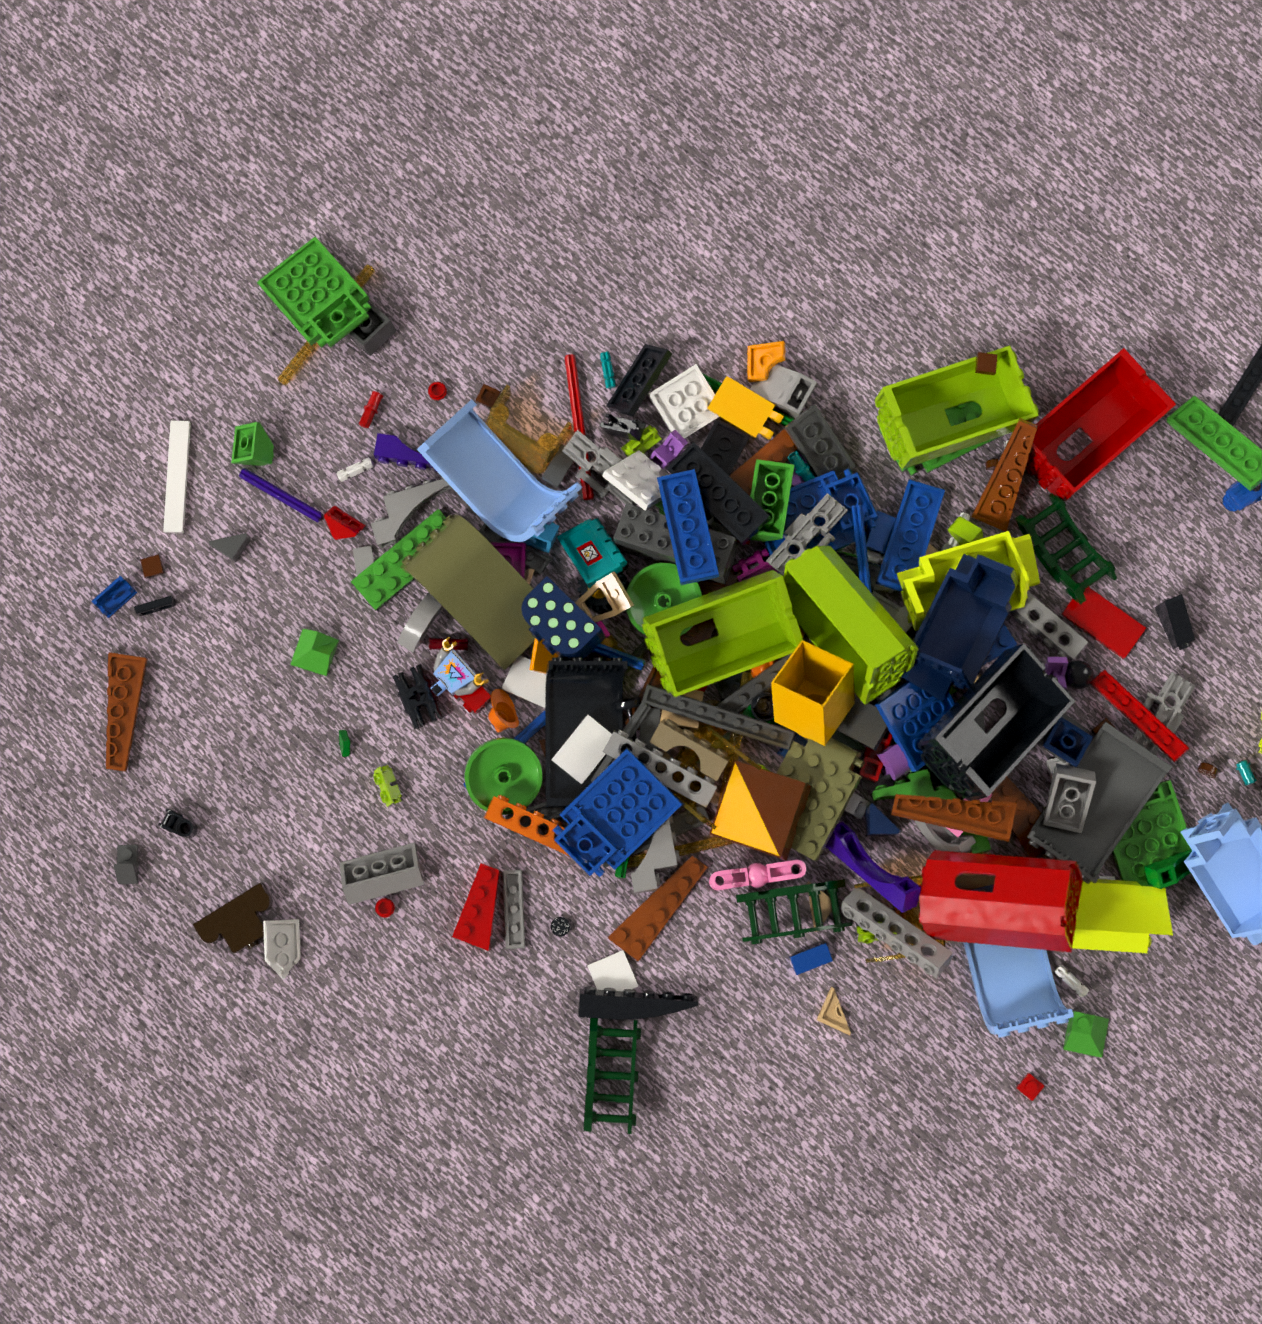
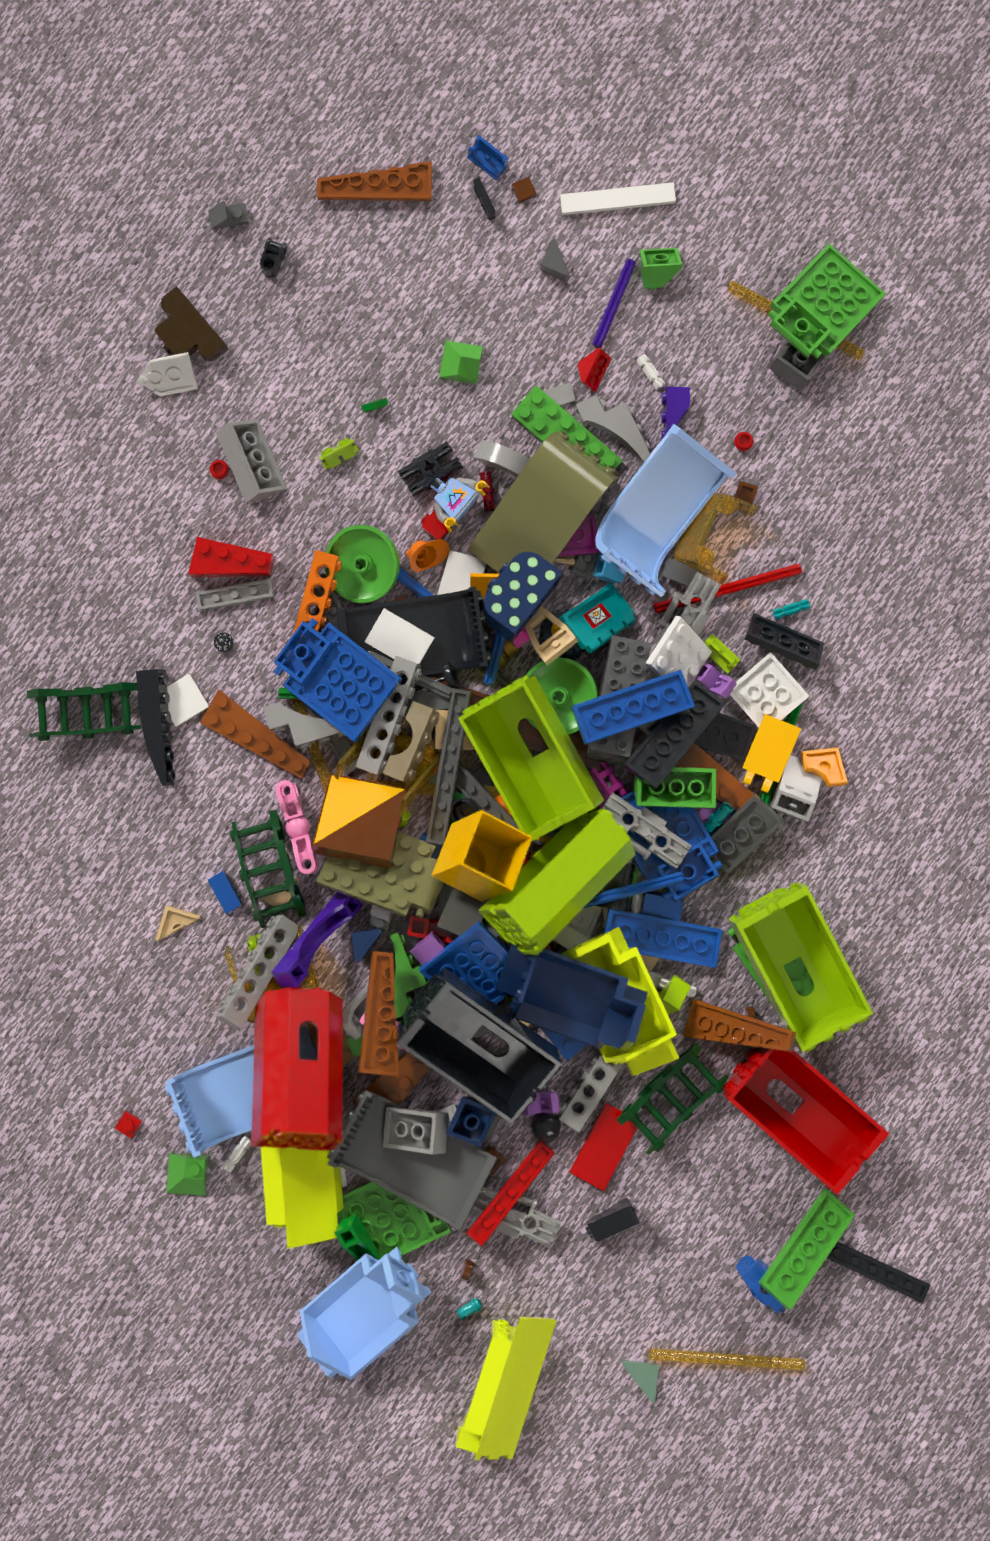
camera: 80 degrees right, 5 degrees up
(370, 409) = (714, 377): red axle -> none
(623, 427) = (732, 632): black hinge -> none
(986, 363) = (848, 990): reddish brown tile -> none

